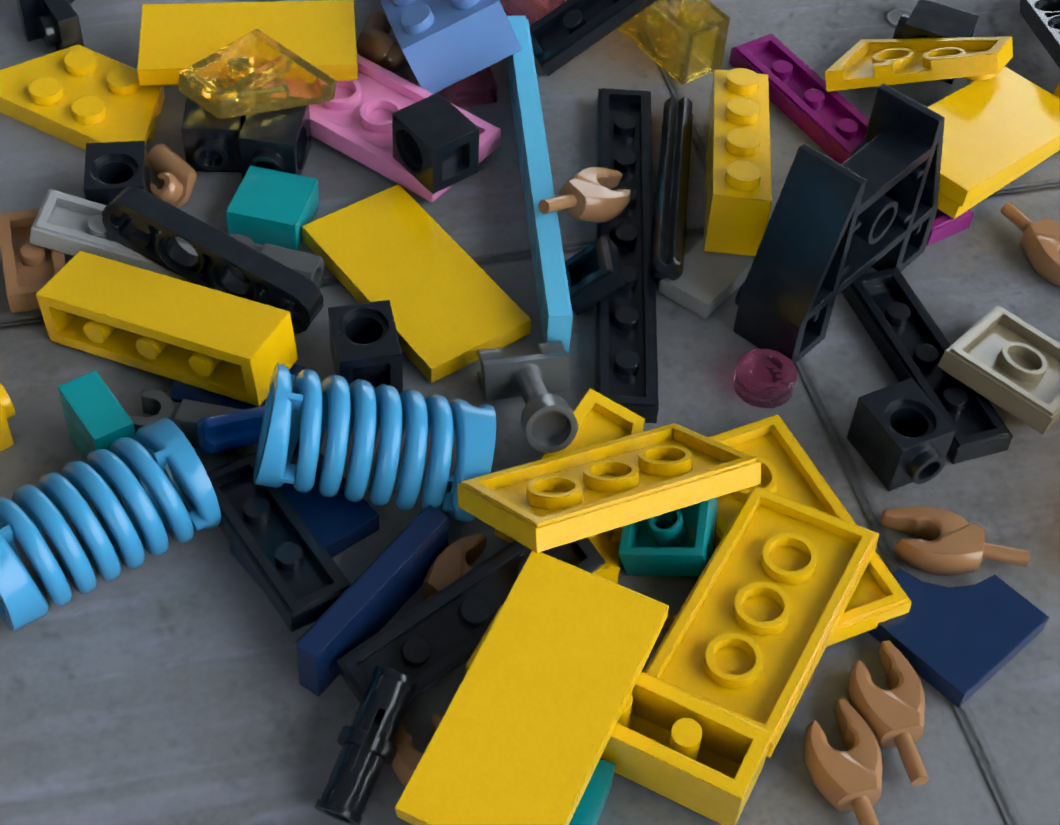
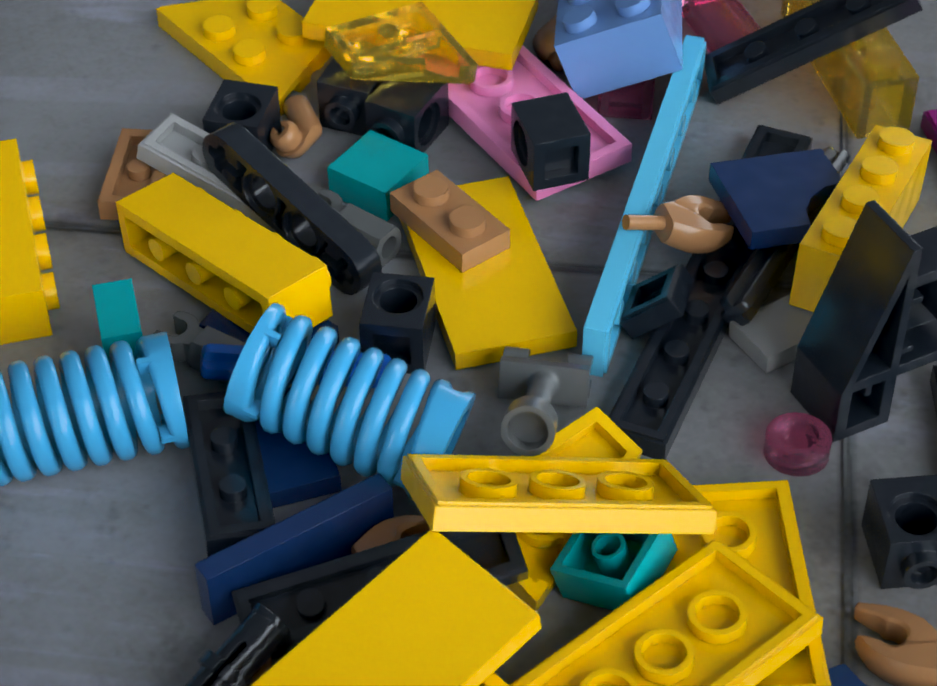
camera: 25 degrees right, 5 degrees down
(368, 239) = (450, 220): none -> medium nougat plate
(655, 152) = (774, 194): none -> dark blue tile

